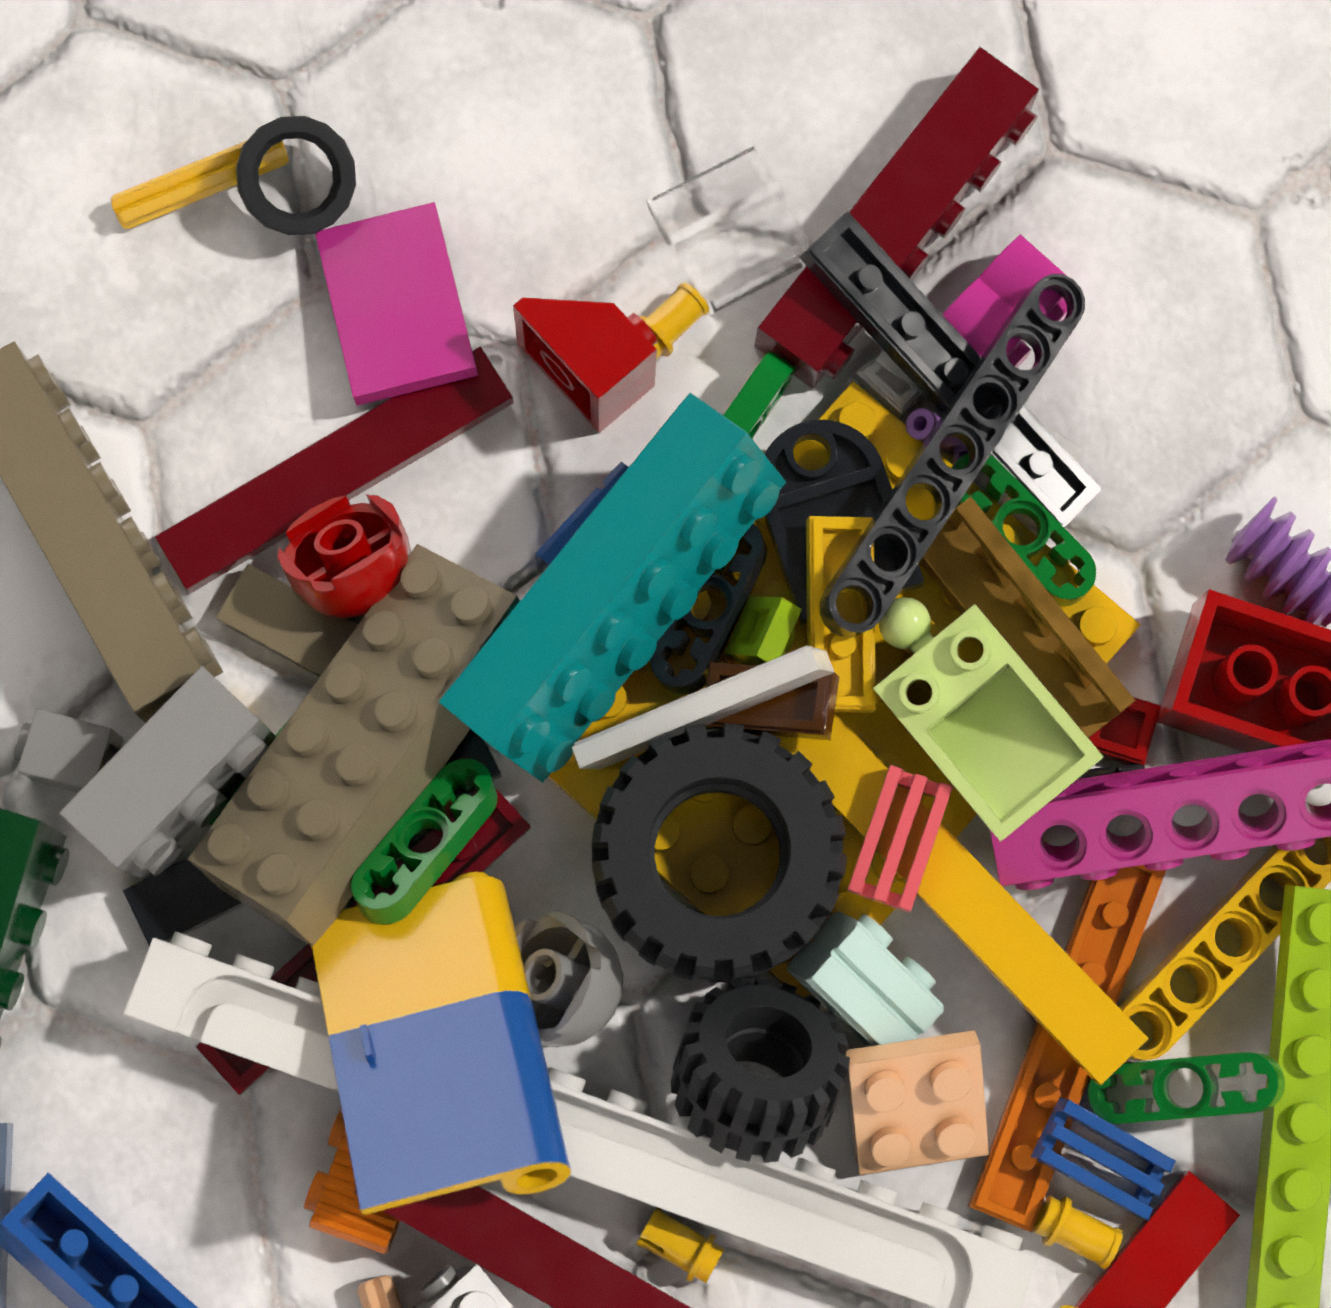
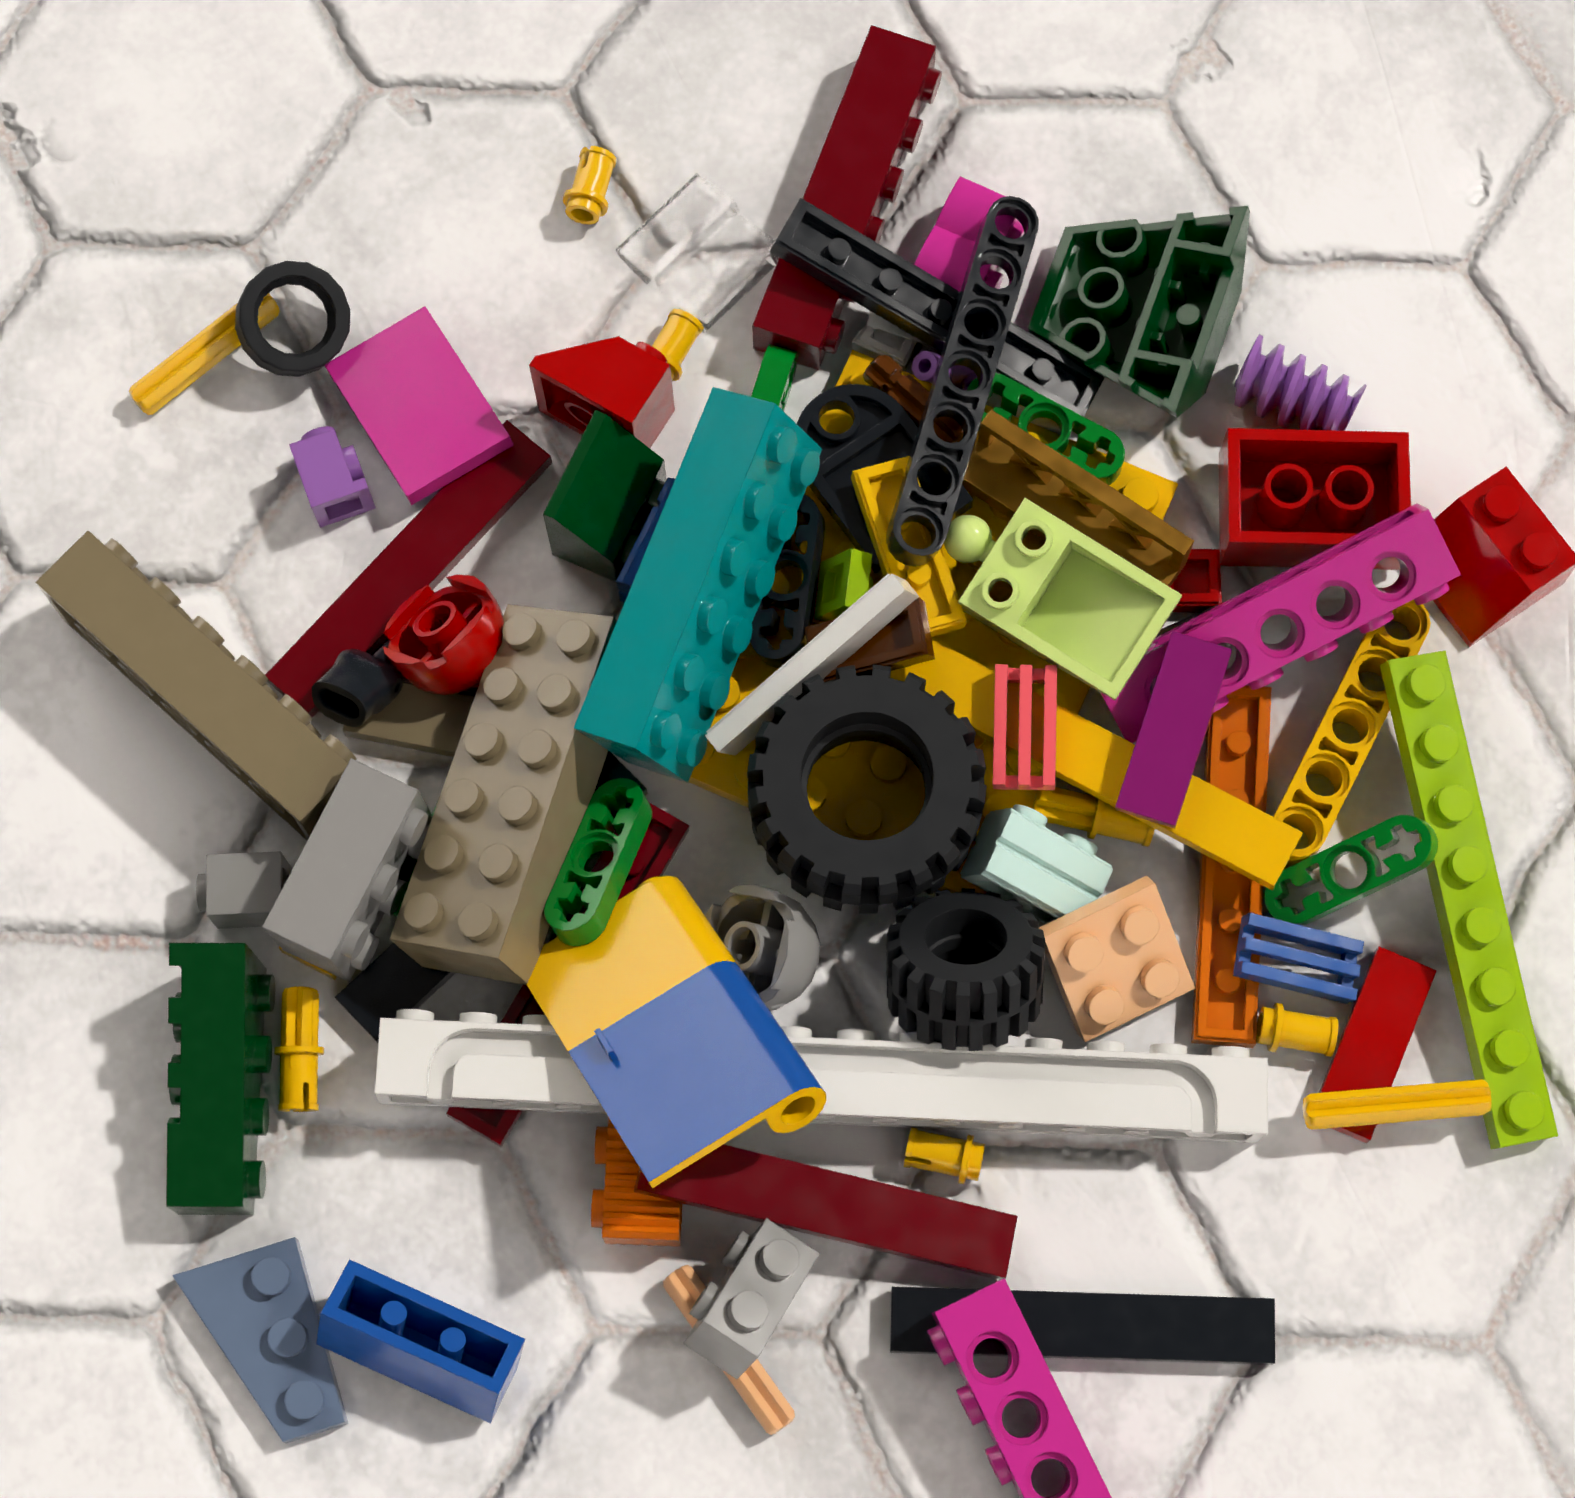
camera: 10 degrees left, 5 degrees down
(70, 933) = (299, 1050): none -> yellow axle
(241, 580) = (357, 686): none -> black piece
(283, 350) = (331, 476): none -> medium lavender brick
(551, 461) = (603, 498): none -> dark green slope
(634, 137) = (586, 198): none -> yellow pin
(894, 449) = (909, 393): none -> reddish brown axle
(934, 938) = (1090, 815): none -> yellow axle
(1050, 891) = (1173, 729): none -> magenta tile
(1169, 424) = (1146, 301): none -> dark green wedge

